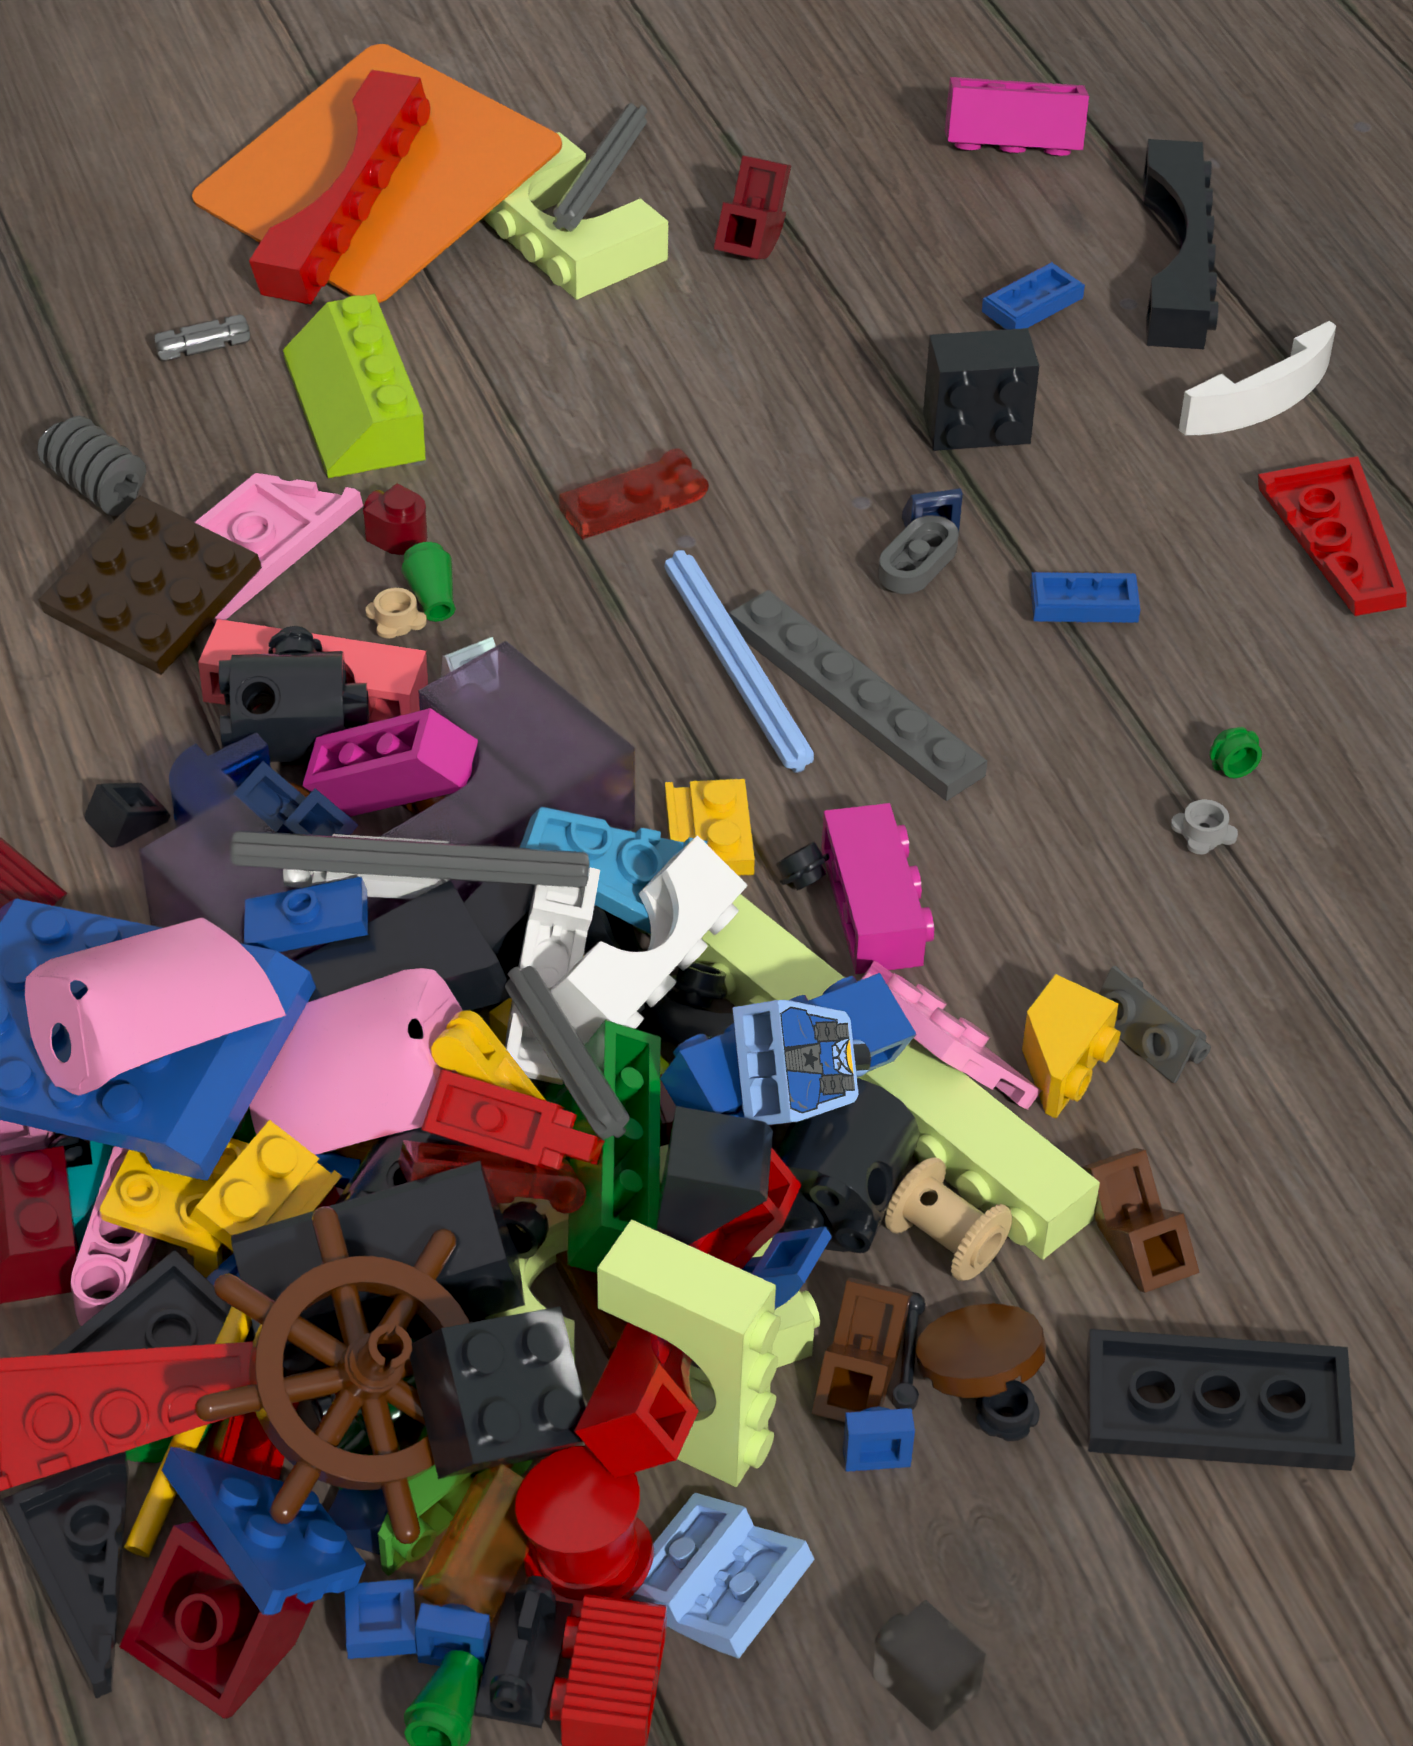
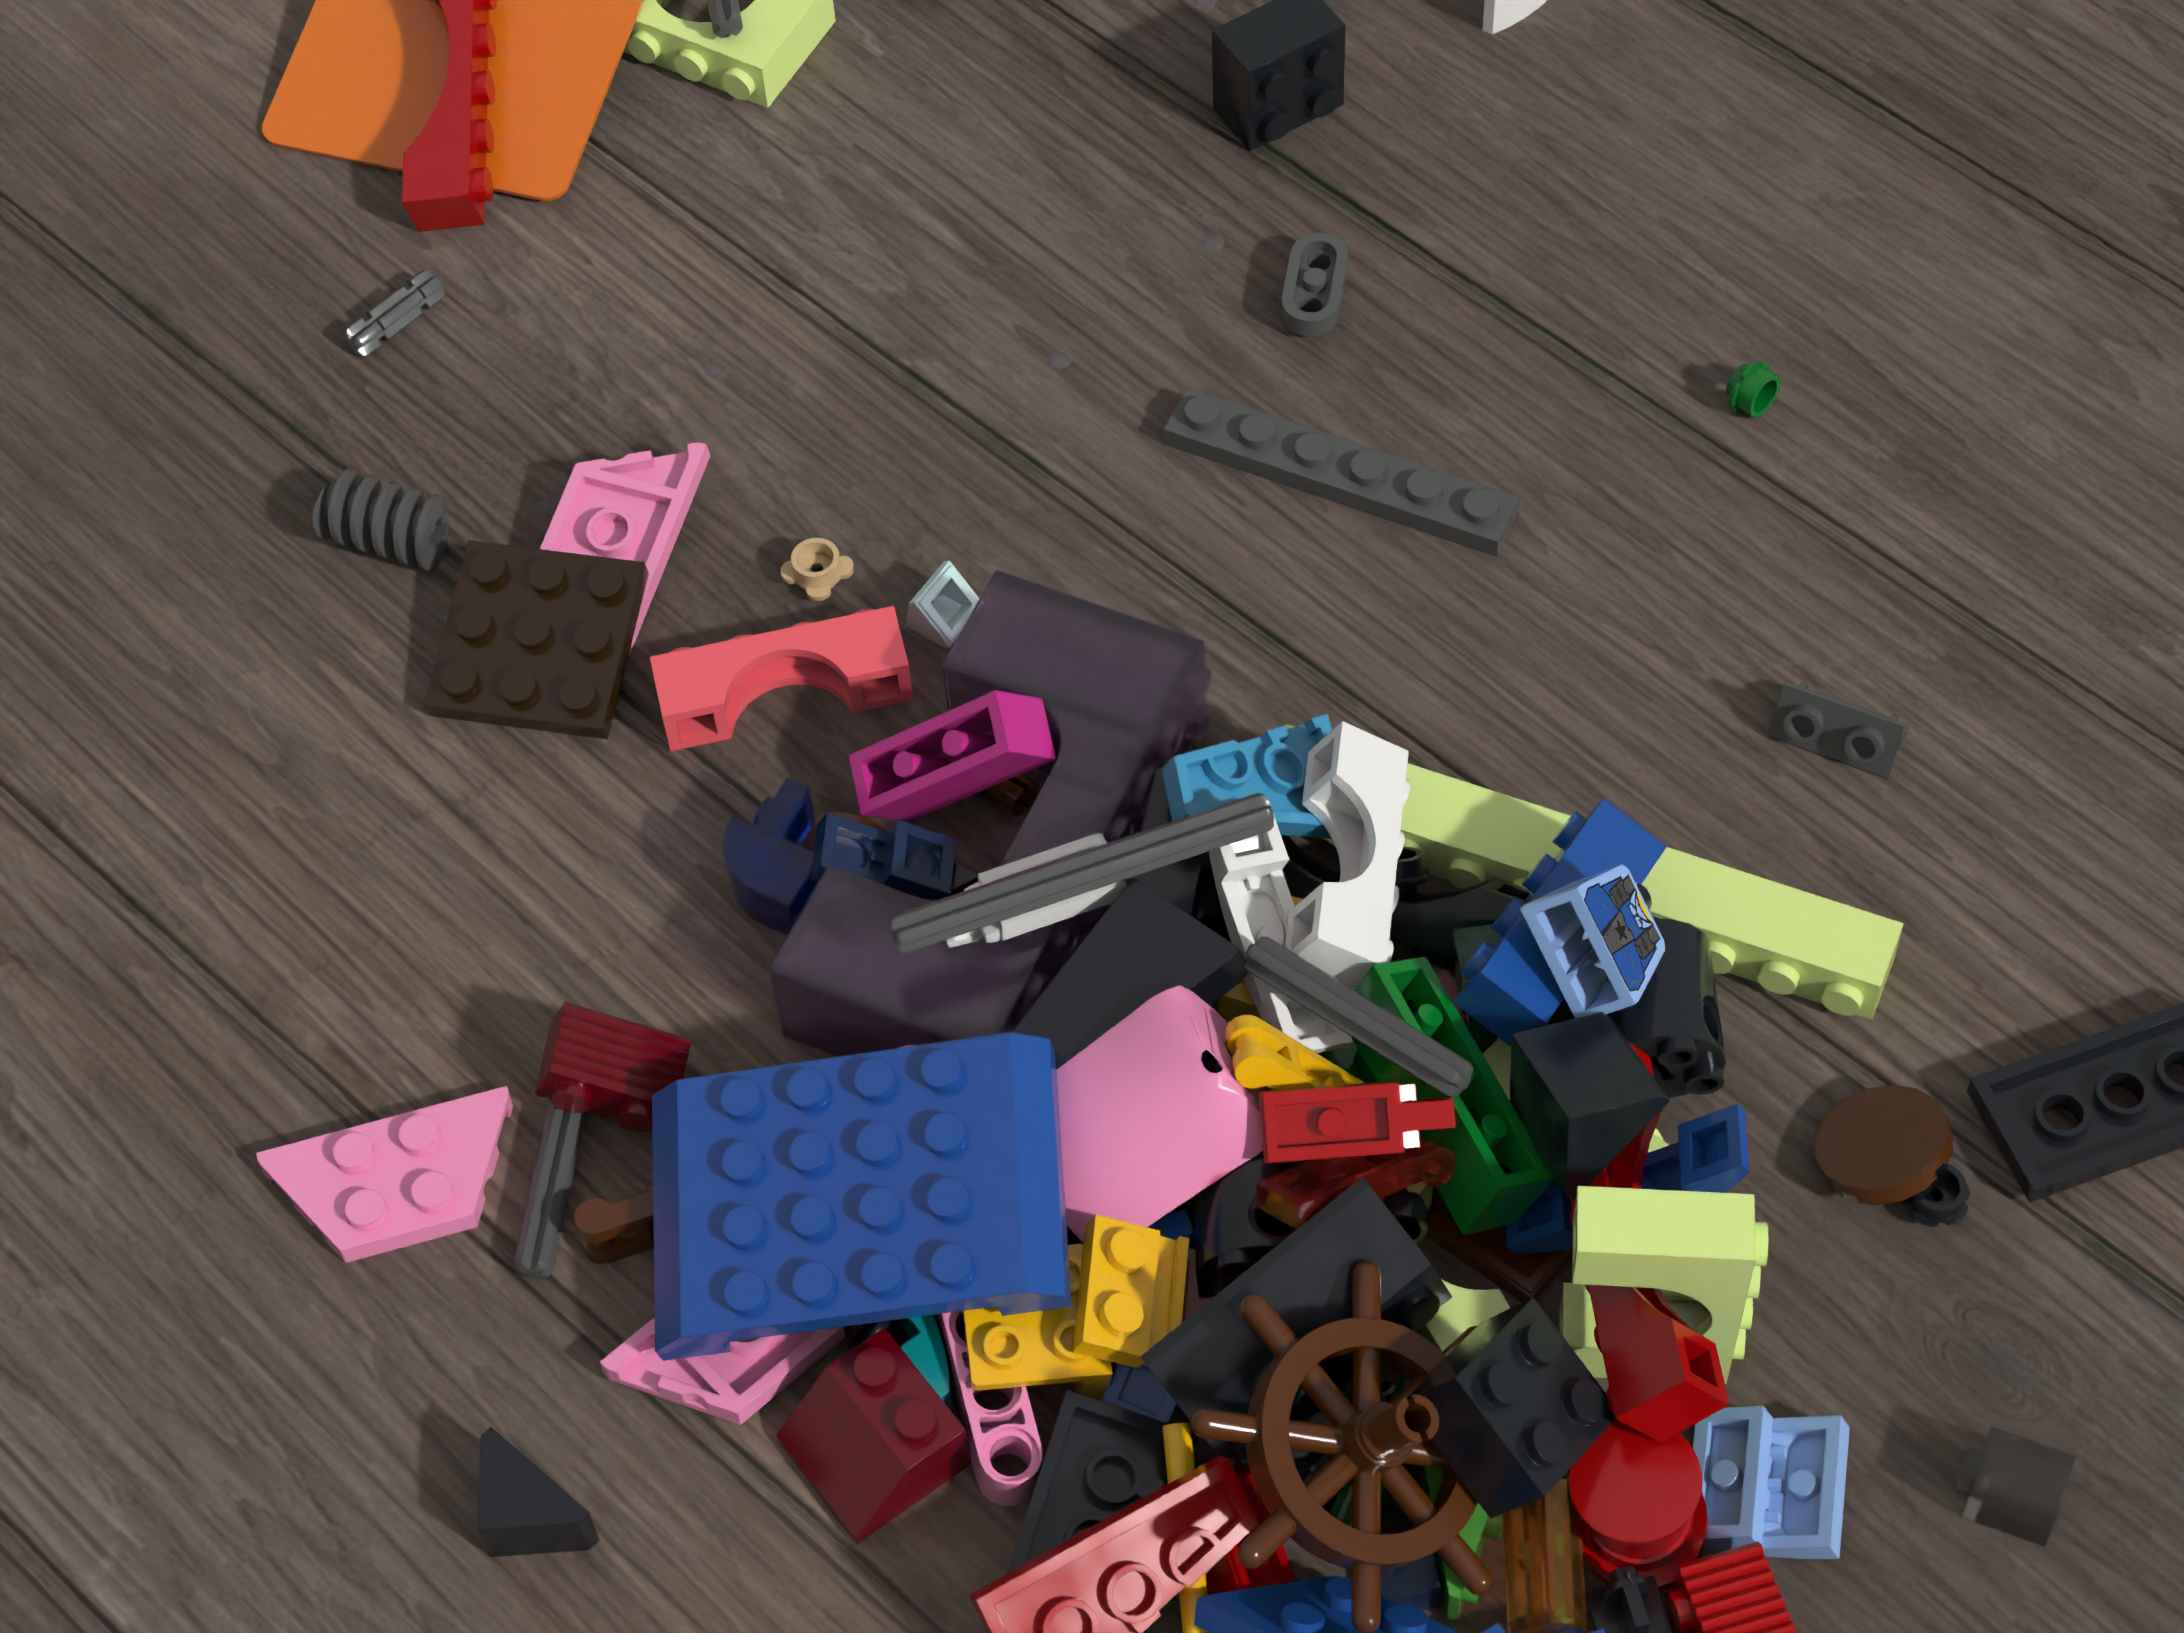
camera: 20 degrees left, 10 degrees up
(124, 812) = (674, 917): black slope -> none
(145, 1000) = (944, 1129): bright pink piece -> none
(294, 640) = (762, 663): black plate -> none
(306, 695) = (810, 713): black cylinder -> none
(307, 916) = (1003, 977): blue plate -> none
(355, 389) = (608, 314): lime slope -> none
(395, 519) = (750, 456): dark red plate -> none
(430, 577) = (830, 512): green cone -> none
(633, 495) = (976, 327): clear red plate -> none
(716, 814) = (1284, 679): yellow plate -> none
(739, 662) = (1203, 481): light blue axle -> none
(803, 866) = (1409, 692): black plate -> none
(863, 1350) = (1780, 1197): reddish brown slope -> none
(876, 887) = (1495, 688): dark pink brick -> none
(878, 1439) = (1840, 1278): blue plate -> none
(905, 1394) = (1830, 1218): black hinge -> none
(939, 503) = (1311, 219): dark blue slope -> none
(948, 1218) = (1785, 1022): tan hose -> none
(955, 1040) = (1676, 825): bright pink wing -> none
(1064, 1040) = (1772, 779): yellow slope -> none
(1085, 597) = (1508, 269): blue plate -> none
(1145, 1237) = (1957, 955): reddish brown slope -> none
(1204, 826) = (1773, 473): light grey plate -> none
(1340, 530) = (1712, 89): red wing -> none

